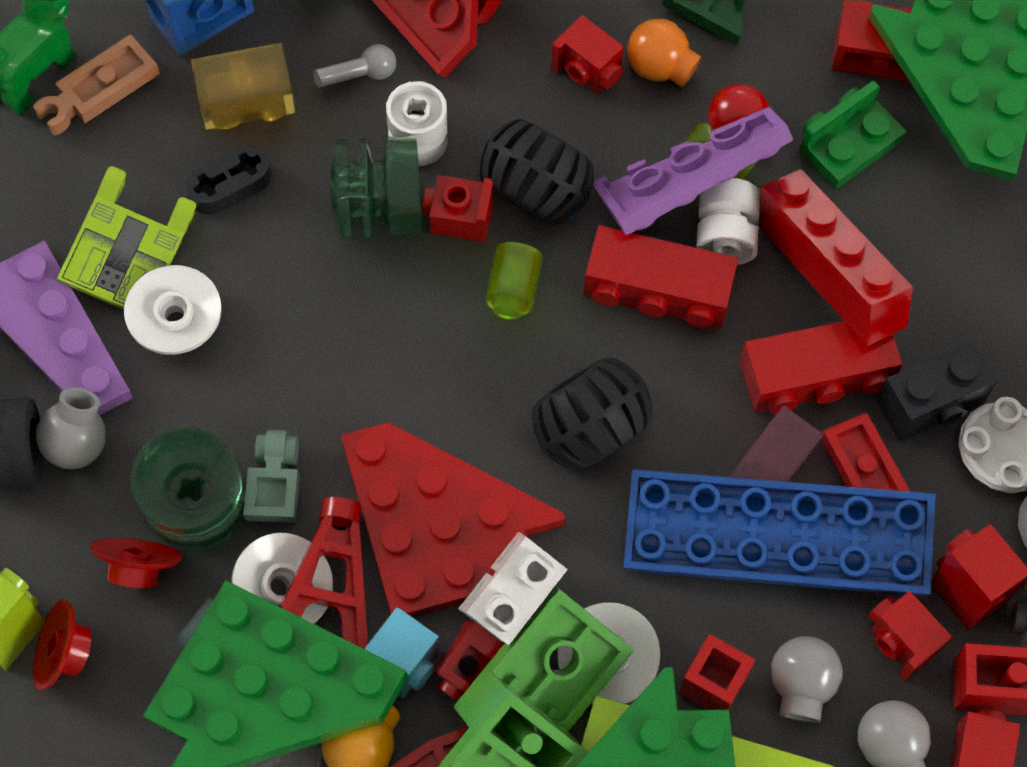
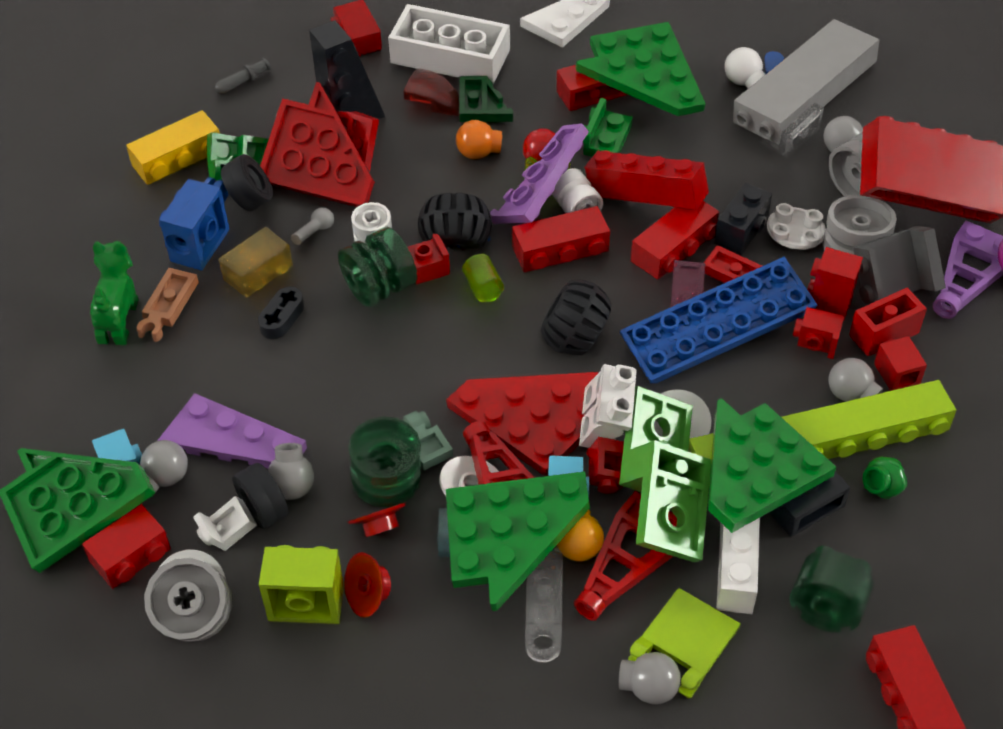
camera: 30 degrees left, 15 degrees down
(121, 245) = (247, 376): lime flag -> none
(171, 291) = (298, 378): white dish -> none
(588, 55) = (440, 158): red brick -> none
(716, 675) = (743, 391): red brick -> none
(806, 677) = (786, 378): light grey piece -> none

